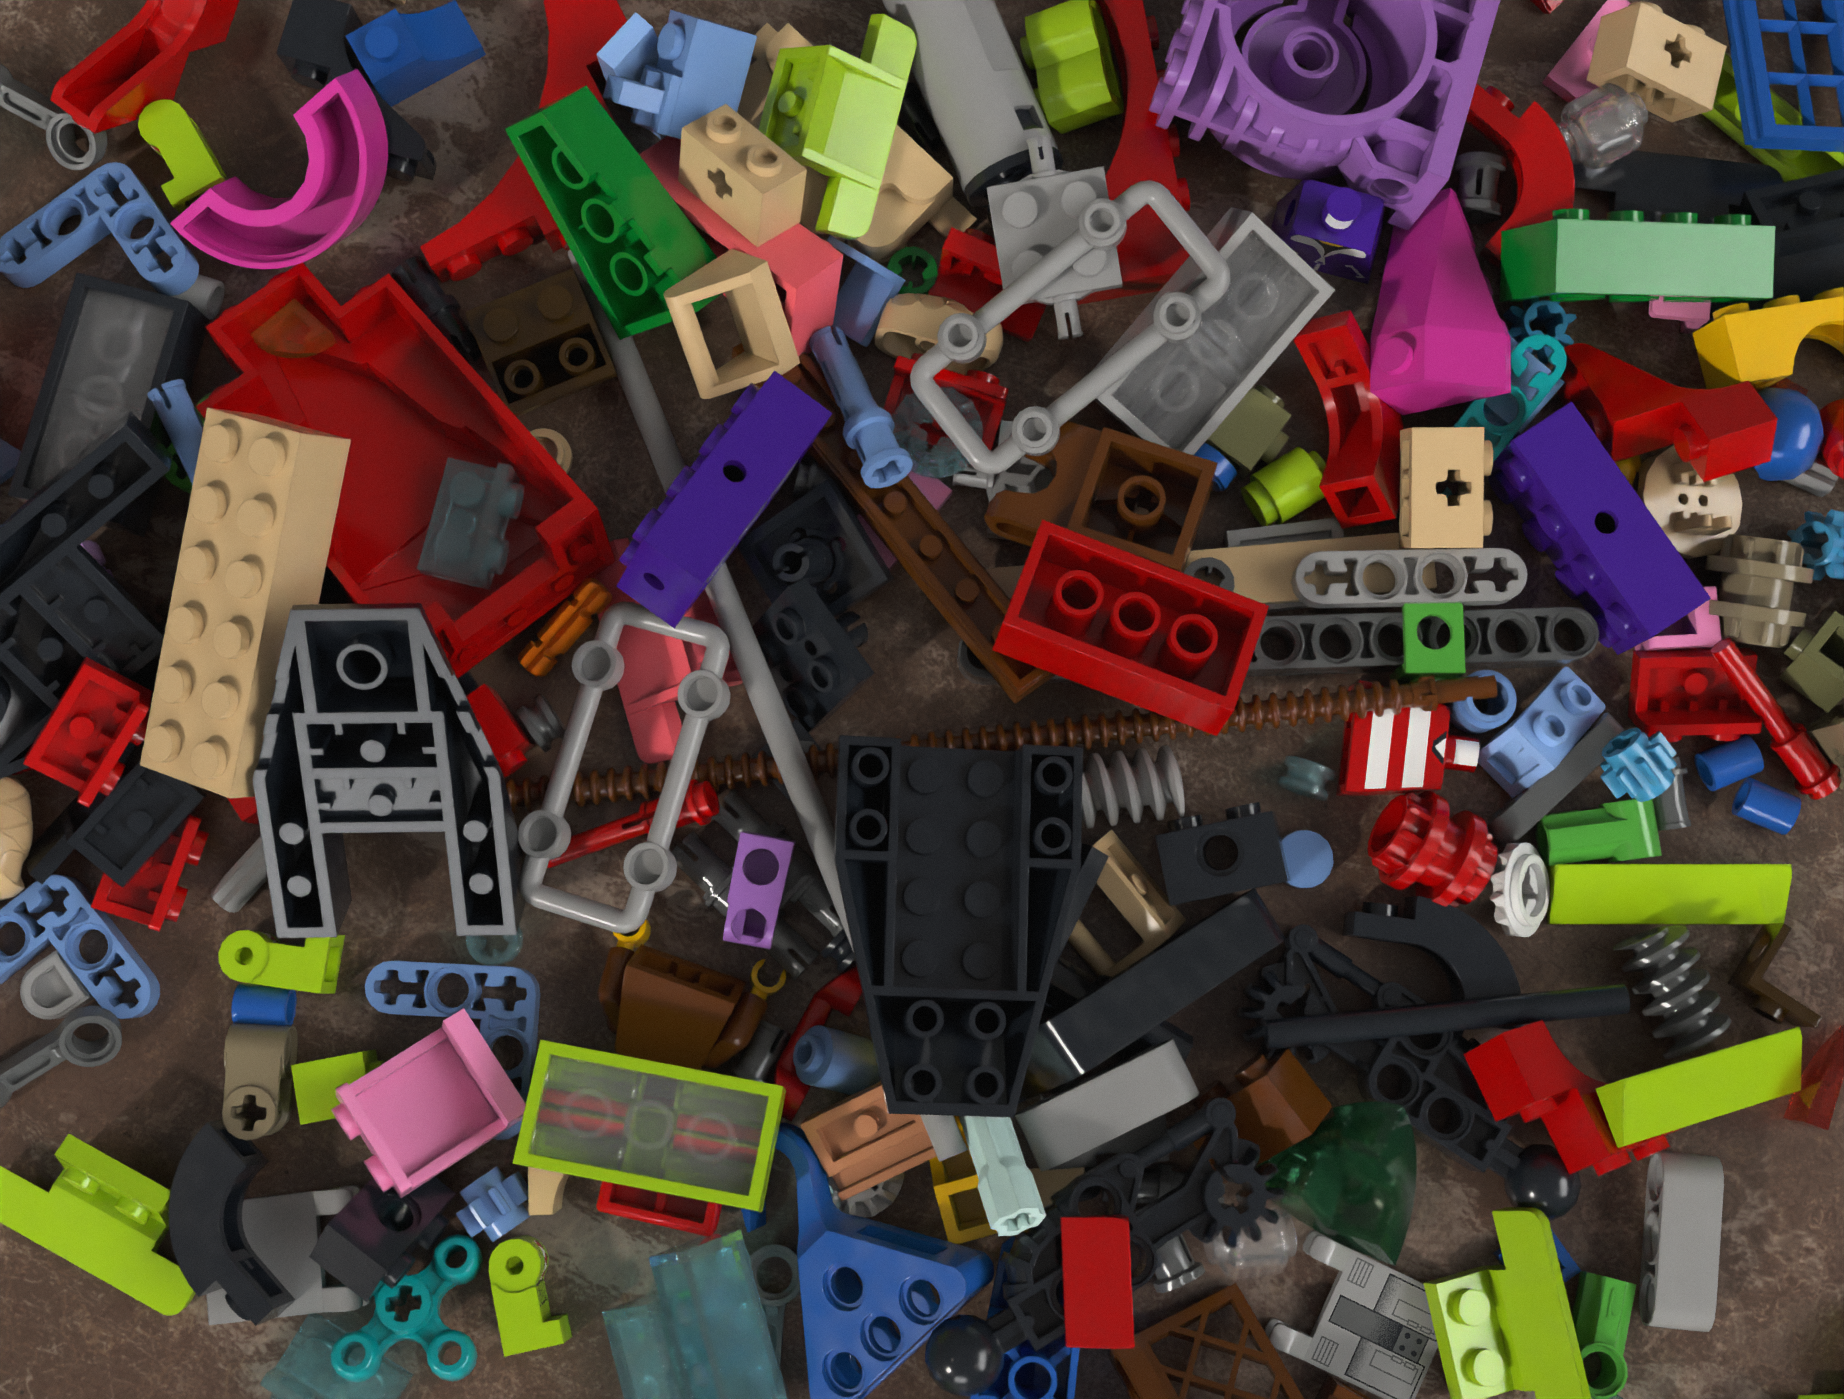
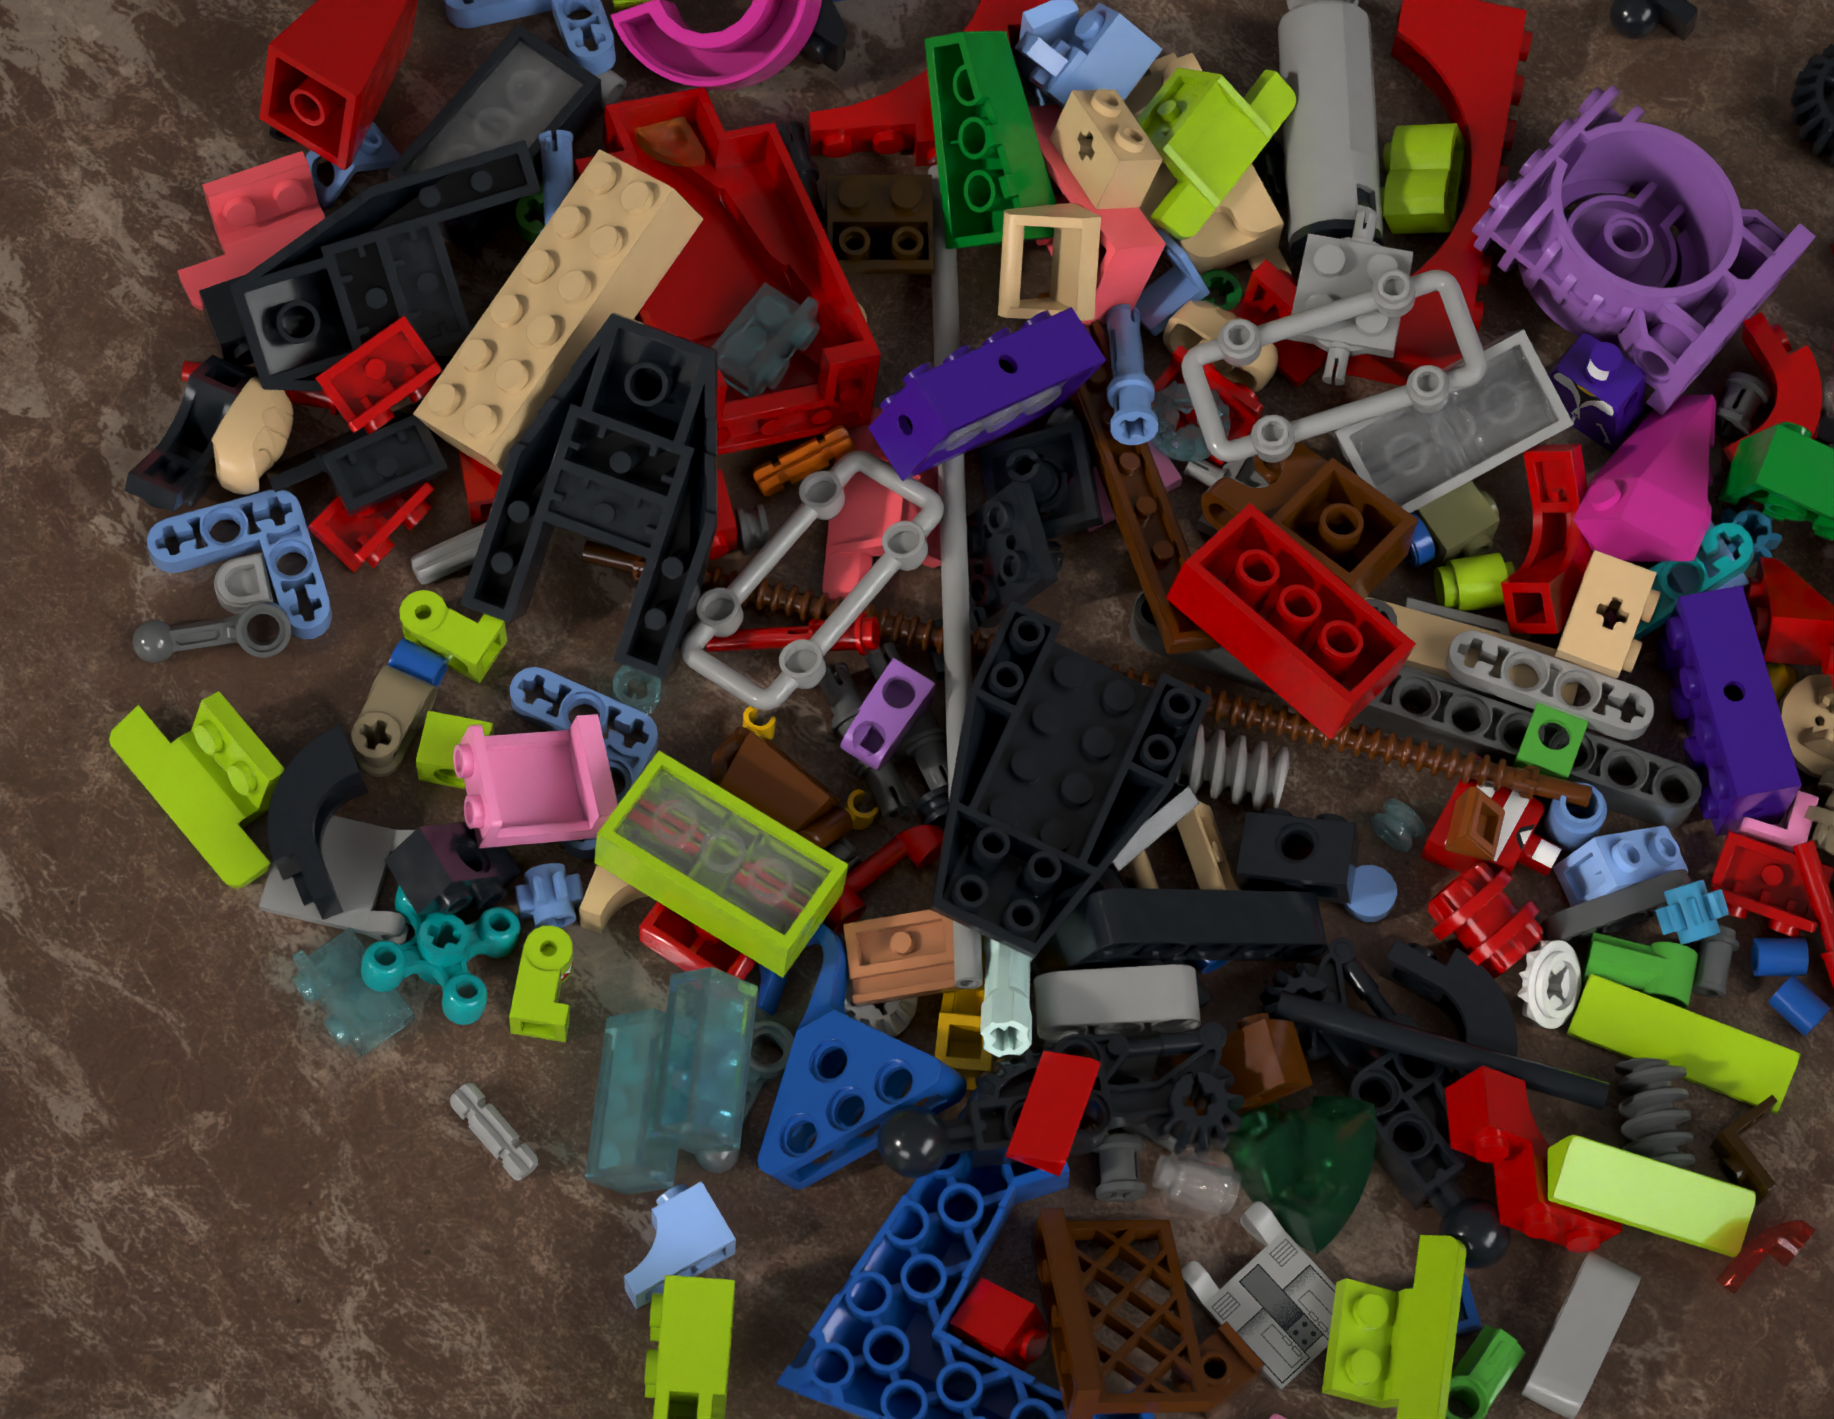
camera: 15 degrees right, 15 degrees down
(835, 1060) = (892, 886): medium blue brick -> none
(1390, 761) = (1475, 825): none -> dark orange slope

